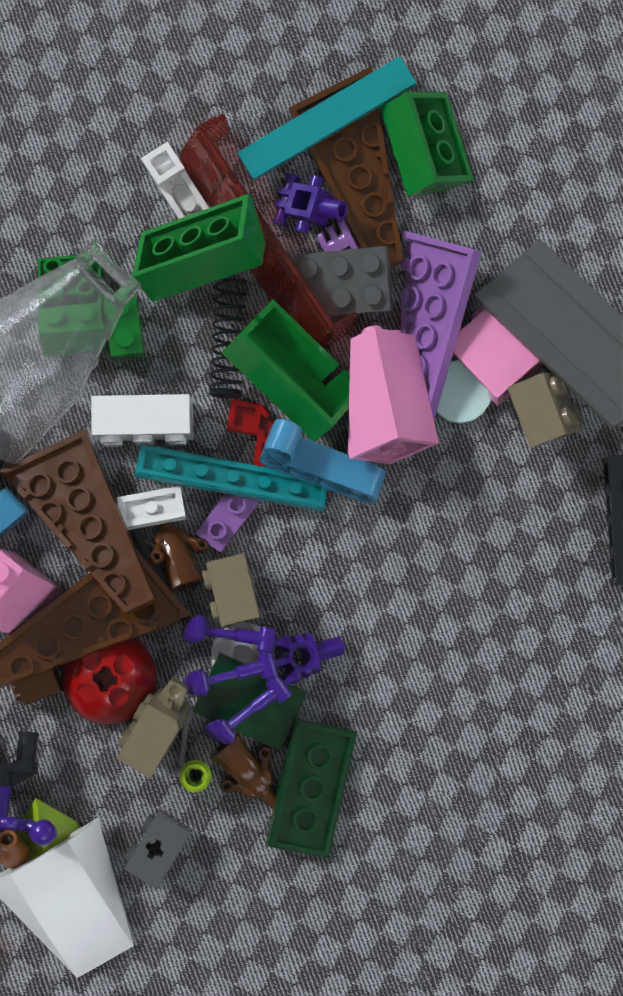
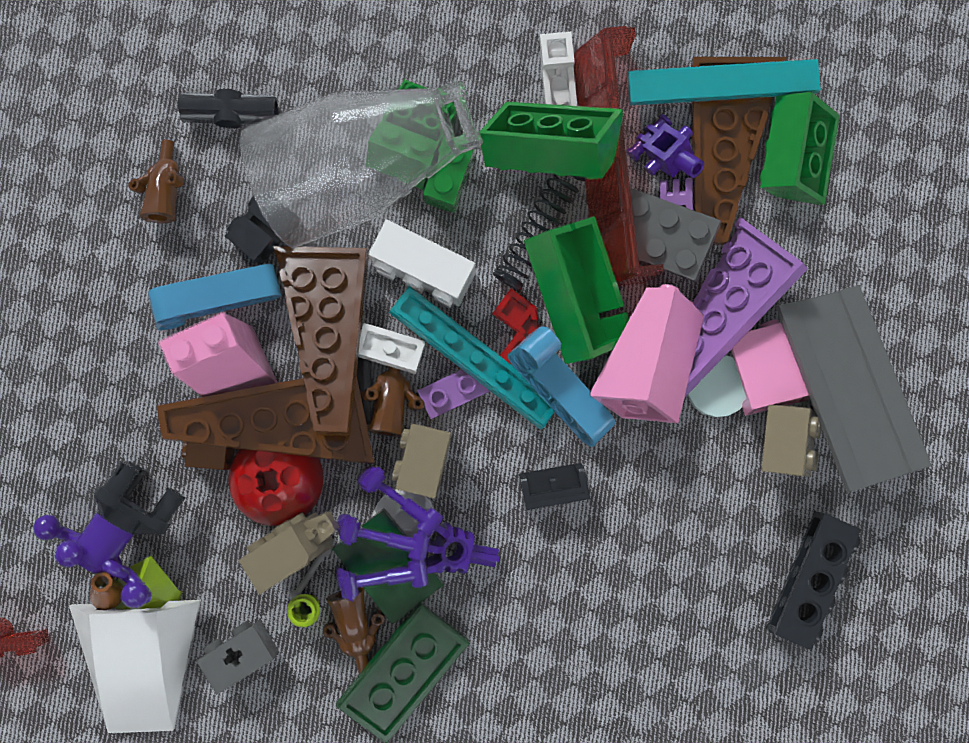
camera: 30 degrees right, 0 degrees up
(360, 555) = (554, 486): none -> black hinge

